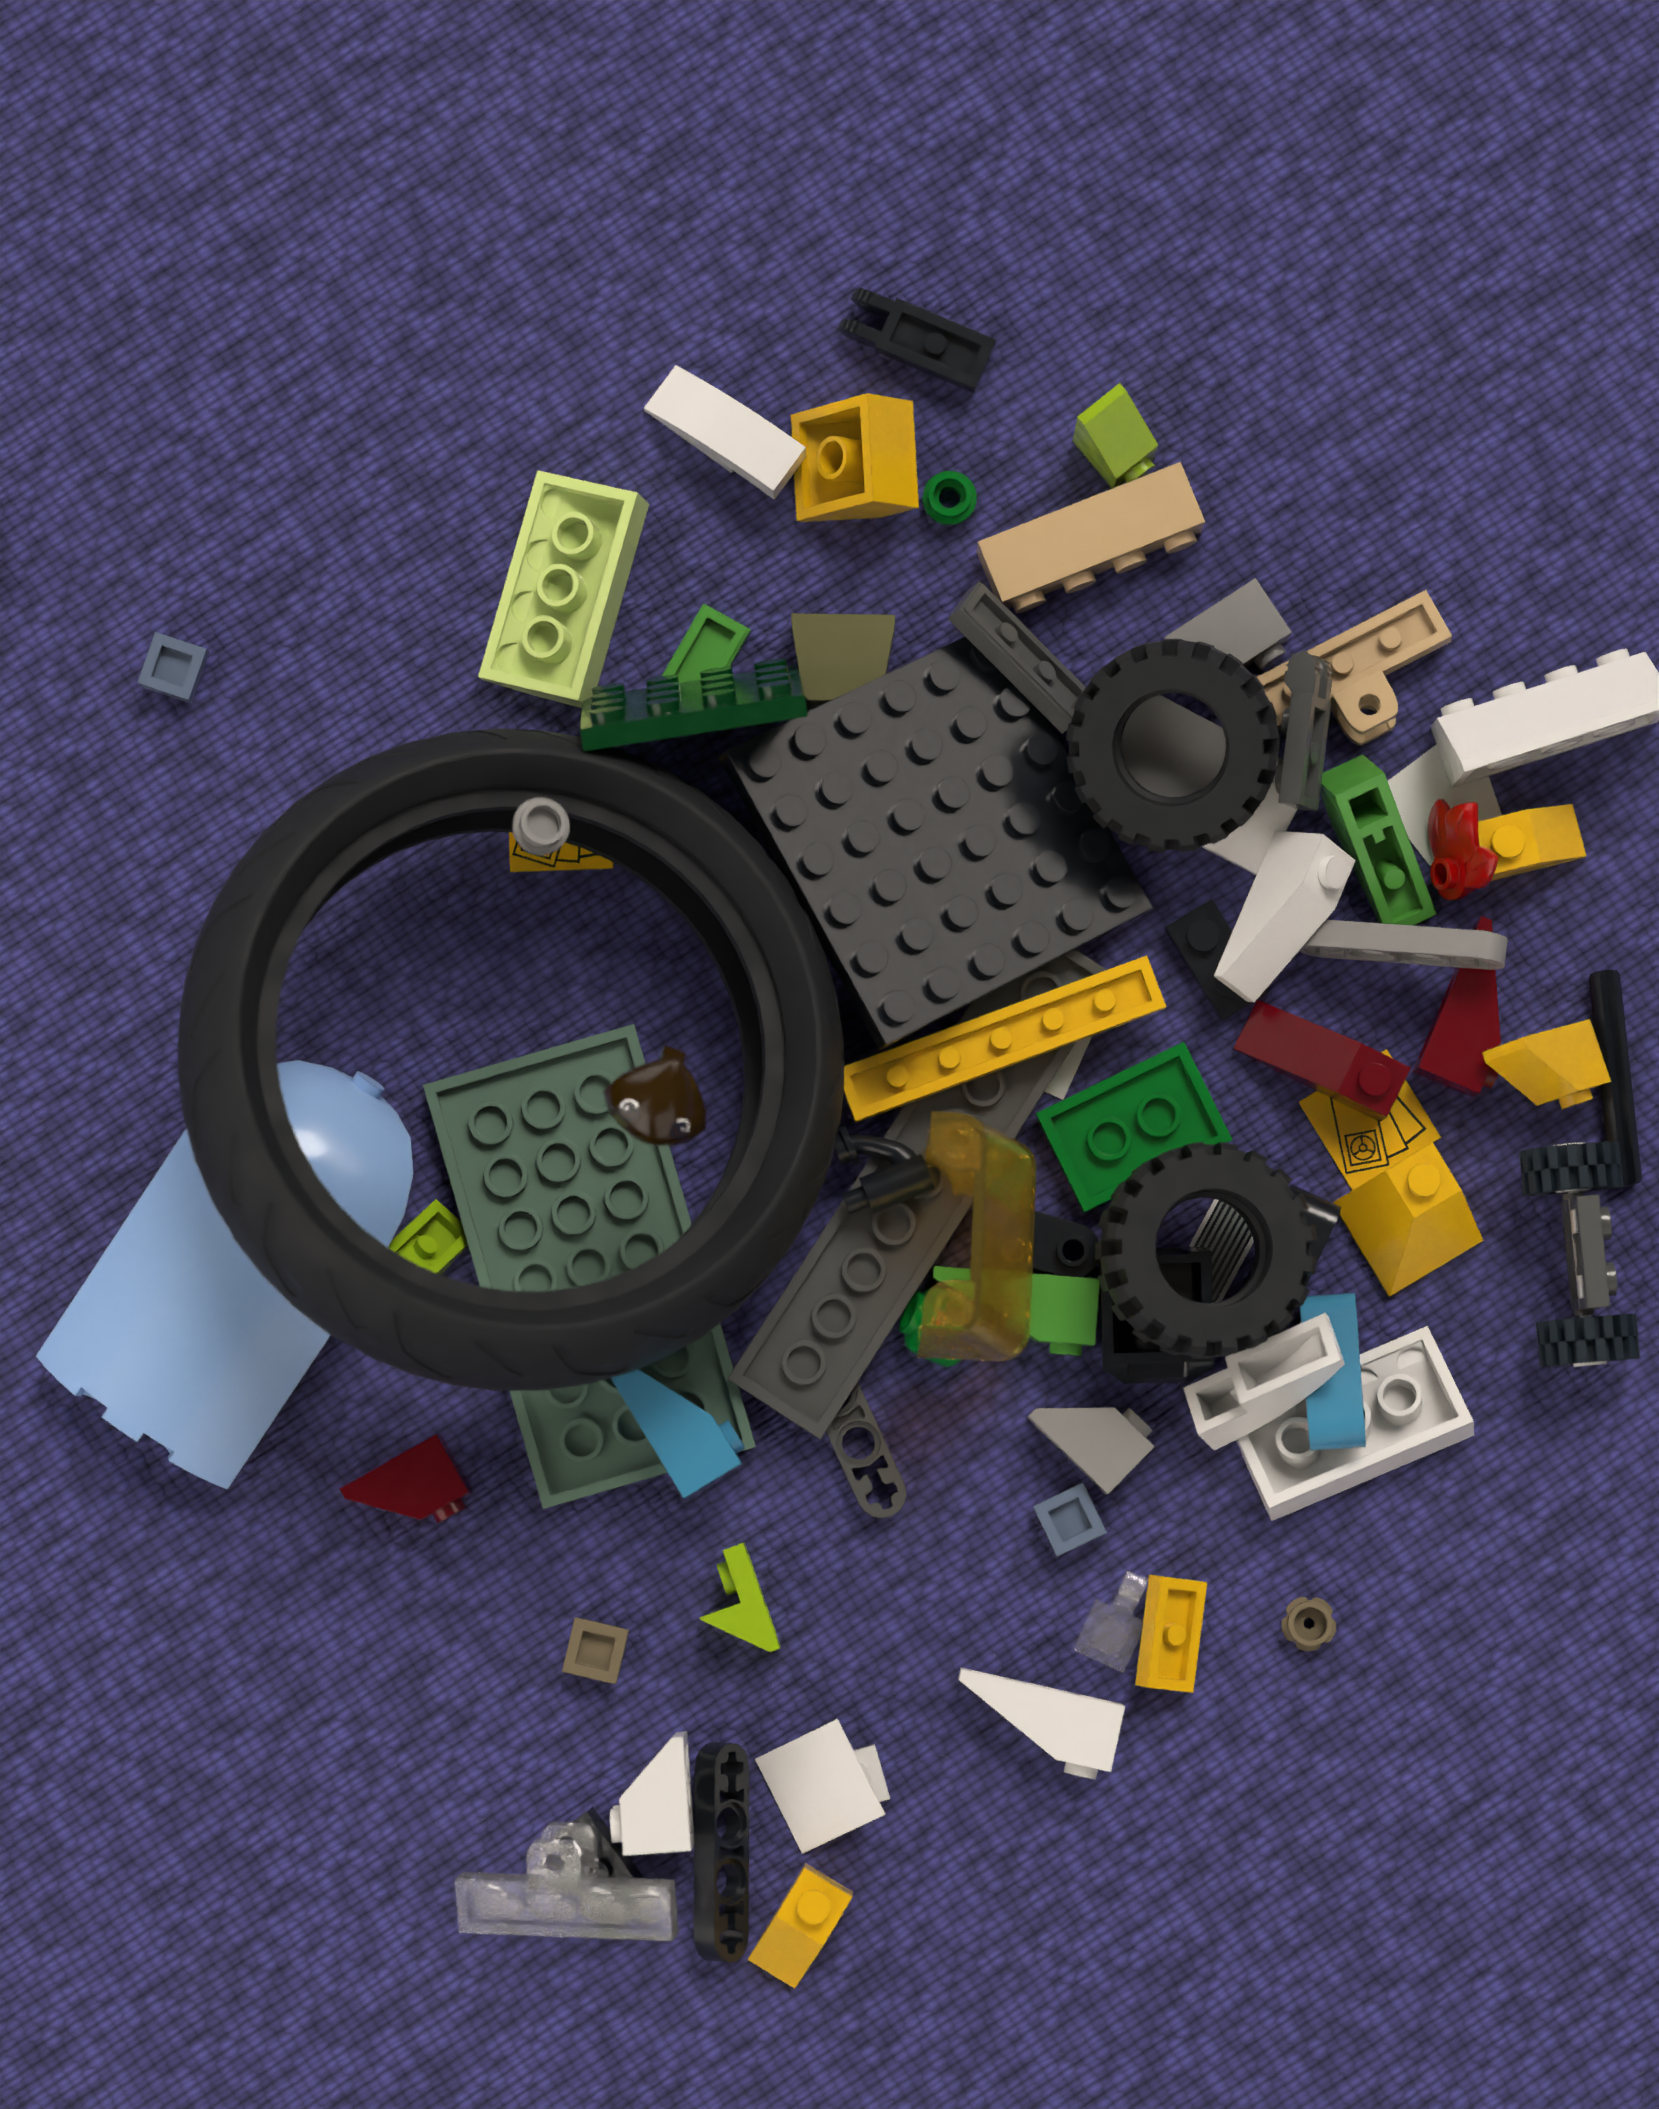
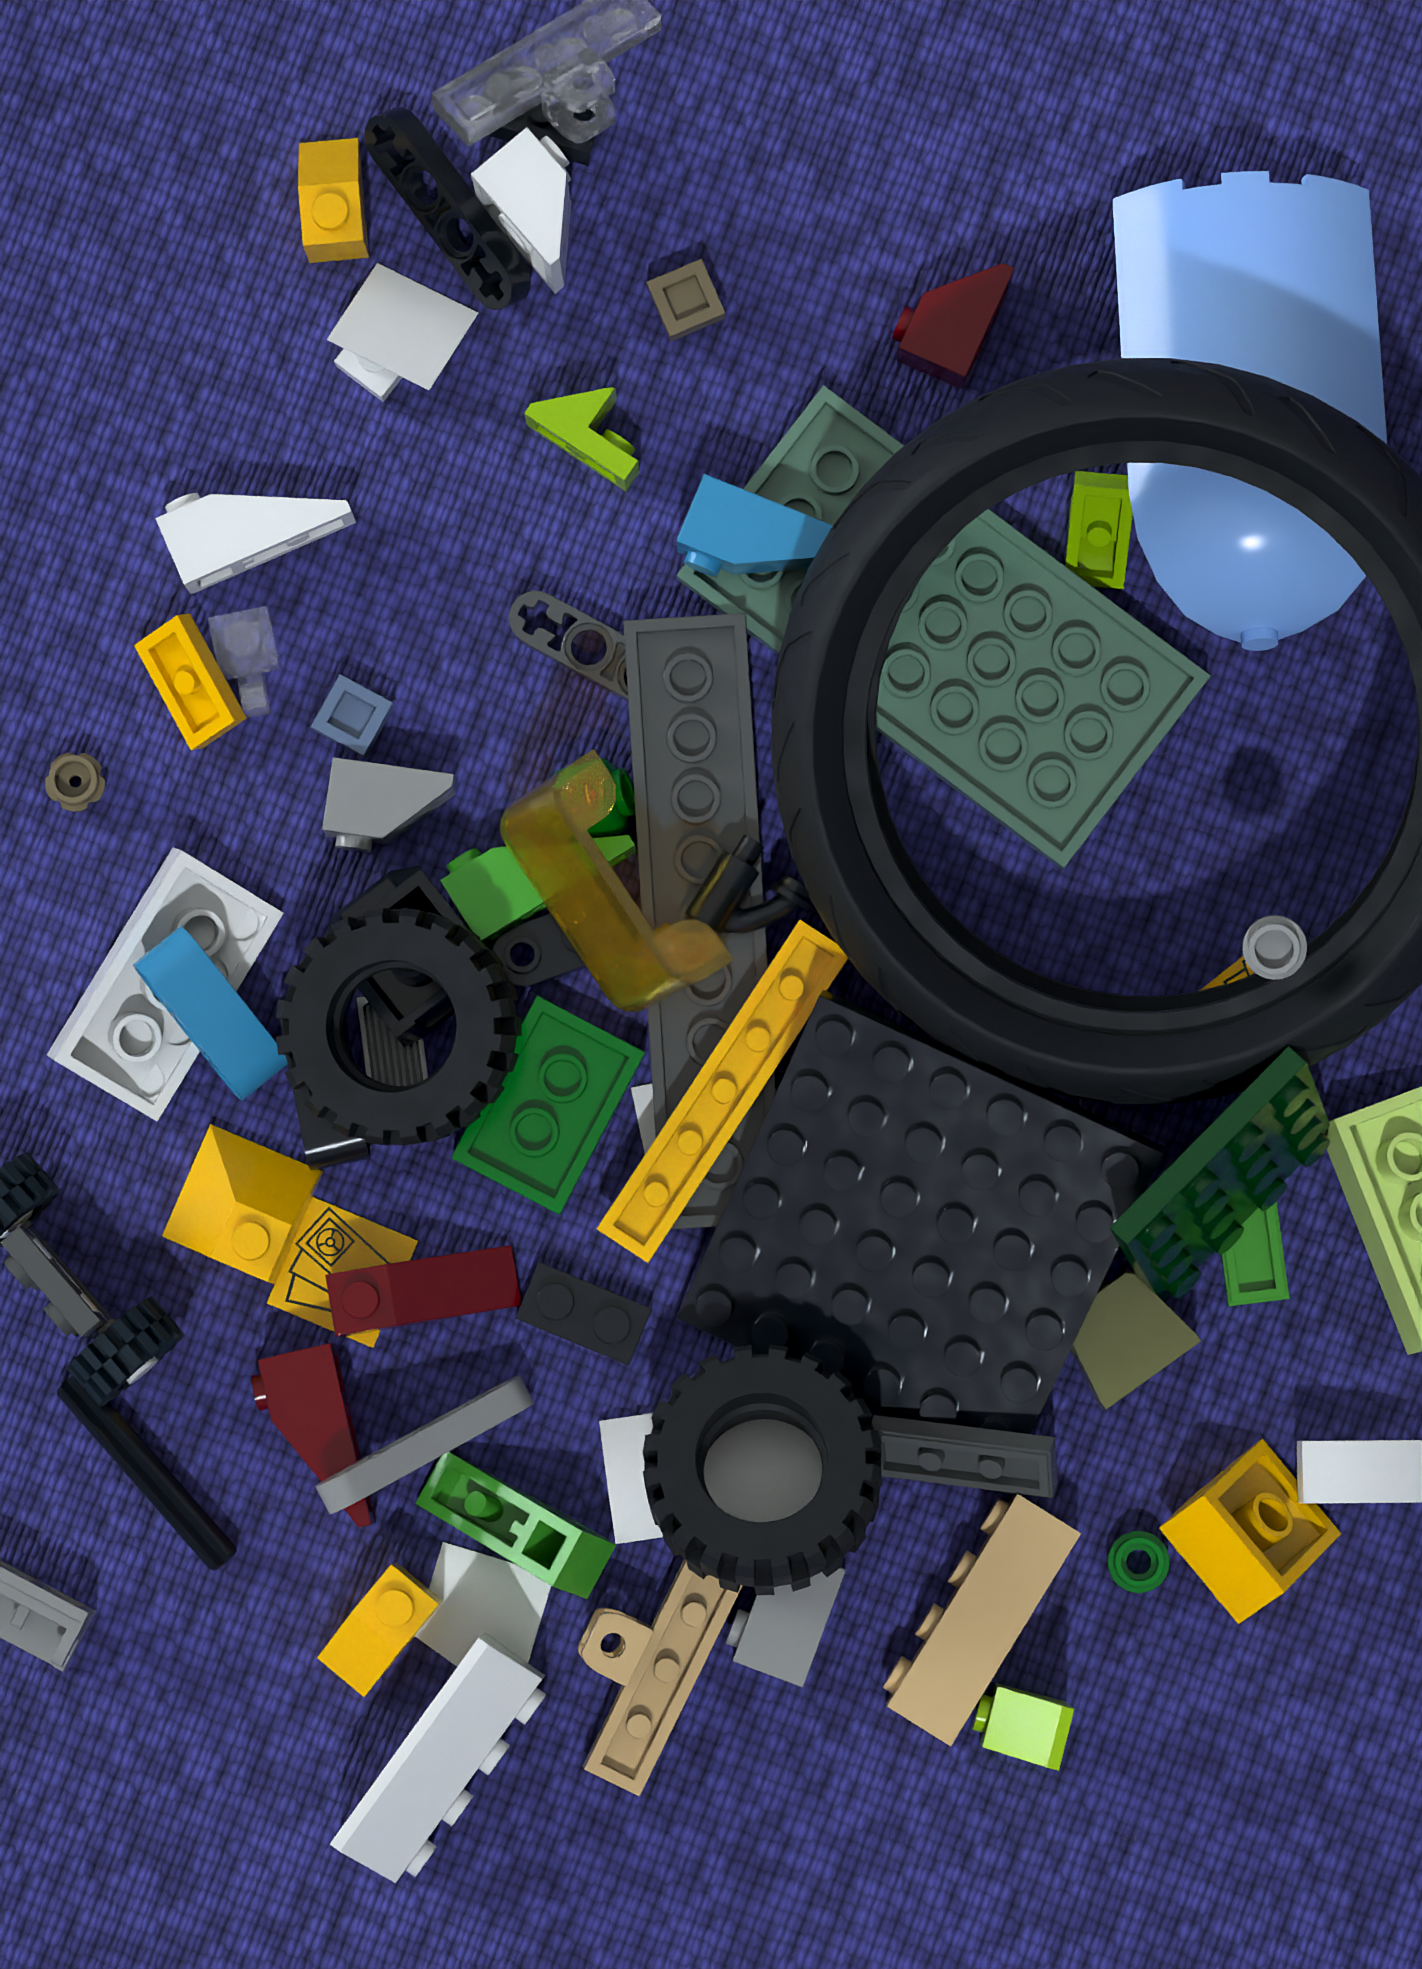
camera: 145 degrees right, 0 degrees up
(658, 1101) = (980, 771): dark brown piece -> none
(922, 340) = (1271, 1691): black hinge -> none
(1264, 1381) = (261, 952): white slope -> none
(1284, 908) = (555, 1401): white slope -> none
(1305, 731) = (653, 1574): dark grey hinge -> none
(1459, 860) = (428, 1560): red plate -> none
(1553, 1064) = (209, 1436): yellow slope -> none

